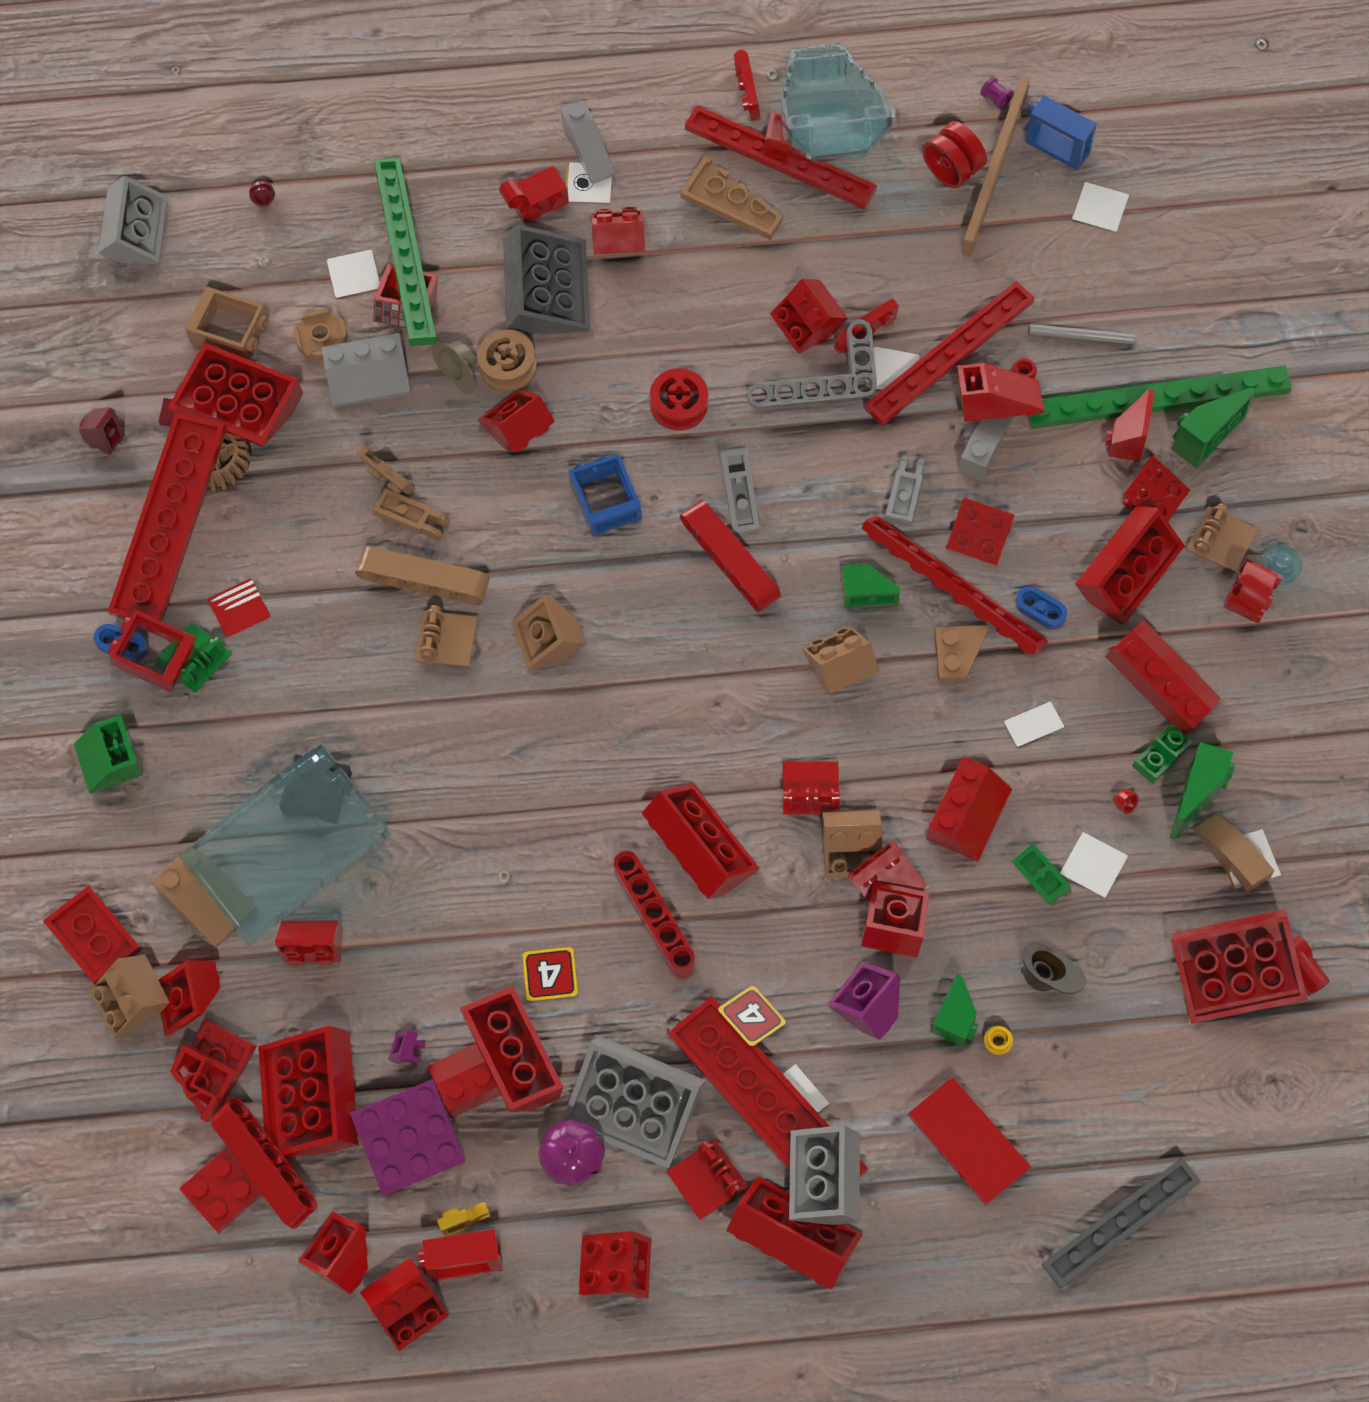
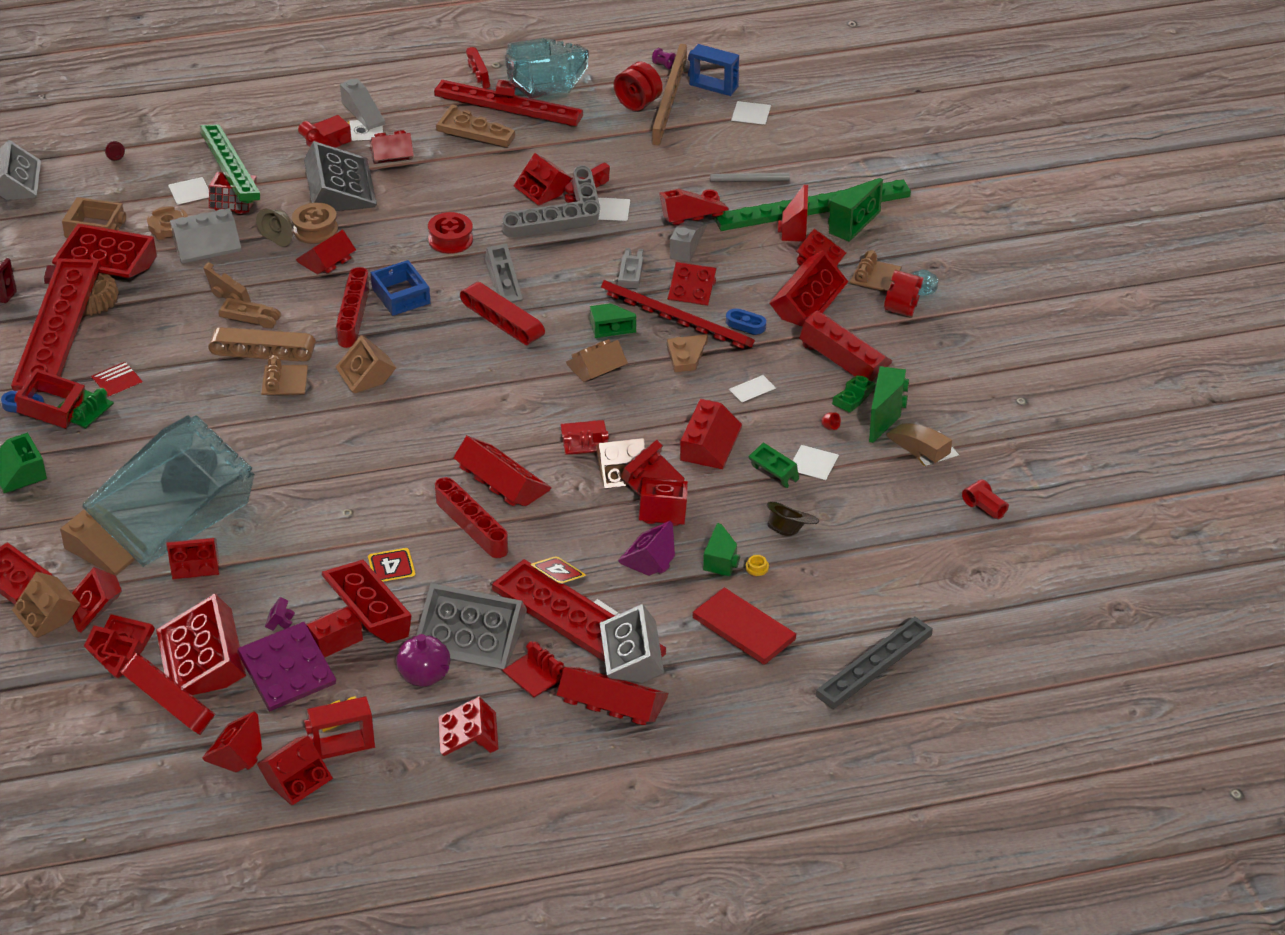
camera: 10 degrees left, 25 degrees down
(221, 1191) = (133, 720): red plate -> none
(542, 534) = (352, 307): none -> red beam
(949, 353) = (649, 194): red plate -> none
(1238, 966) = (935, 496): red slope -> none

